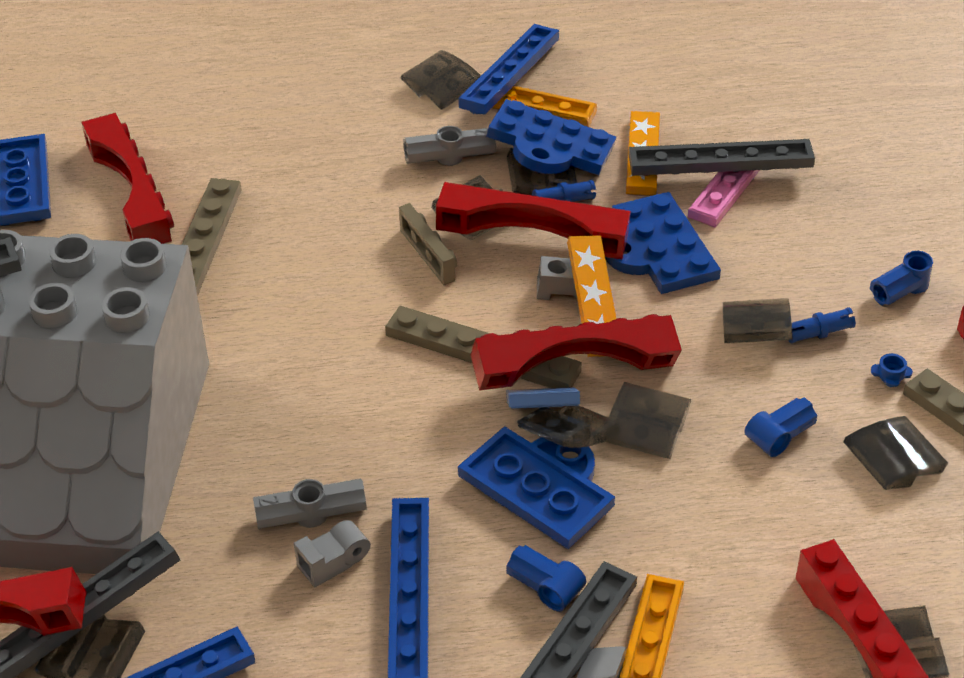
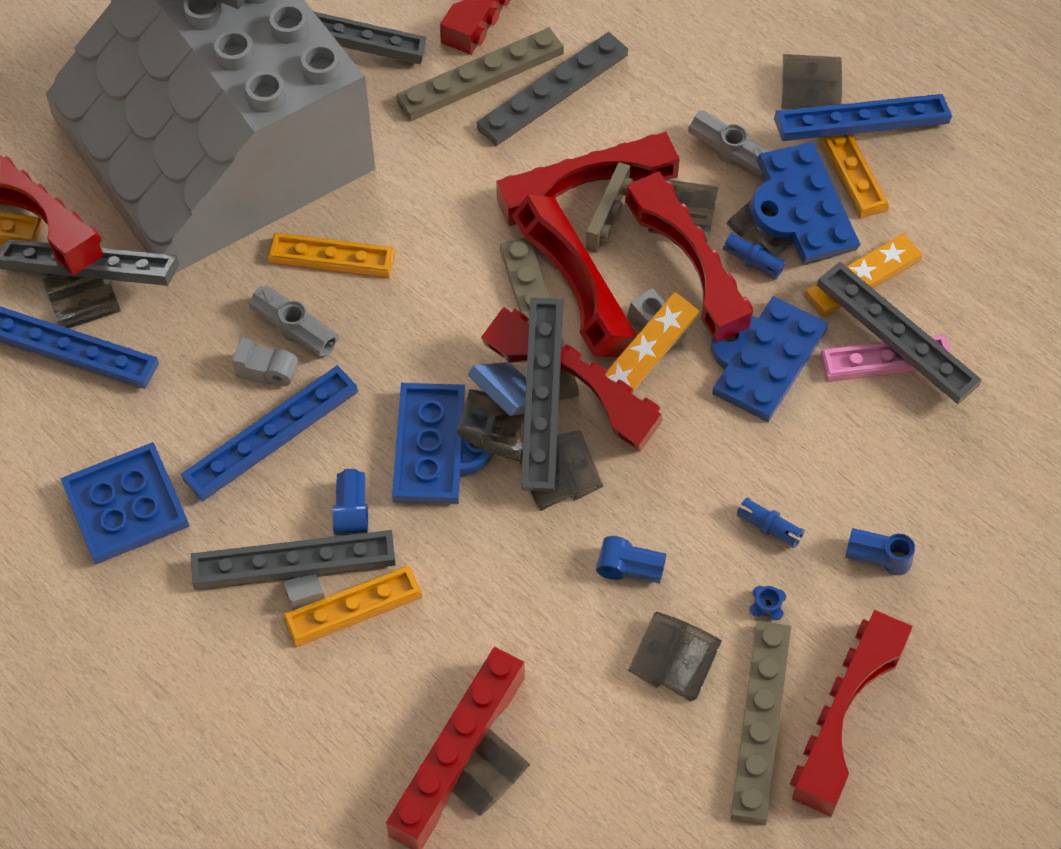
camera: 50 degrees right, 15 degrees up
(264, 442) = (331, 255): none -> light orange tile
(269, 214) = (552, 88): none -> dark grey plate
(357, 281) = (643, 155): none -> red arch
(495, 298) = (602, 319): none -> red arch
(584, 369) = (542, 394): none -> dark grey plate
(757, 320) = (732, 474): clear smoke slope -> none

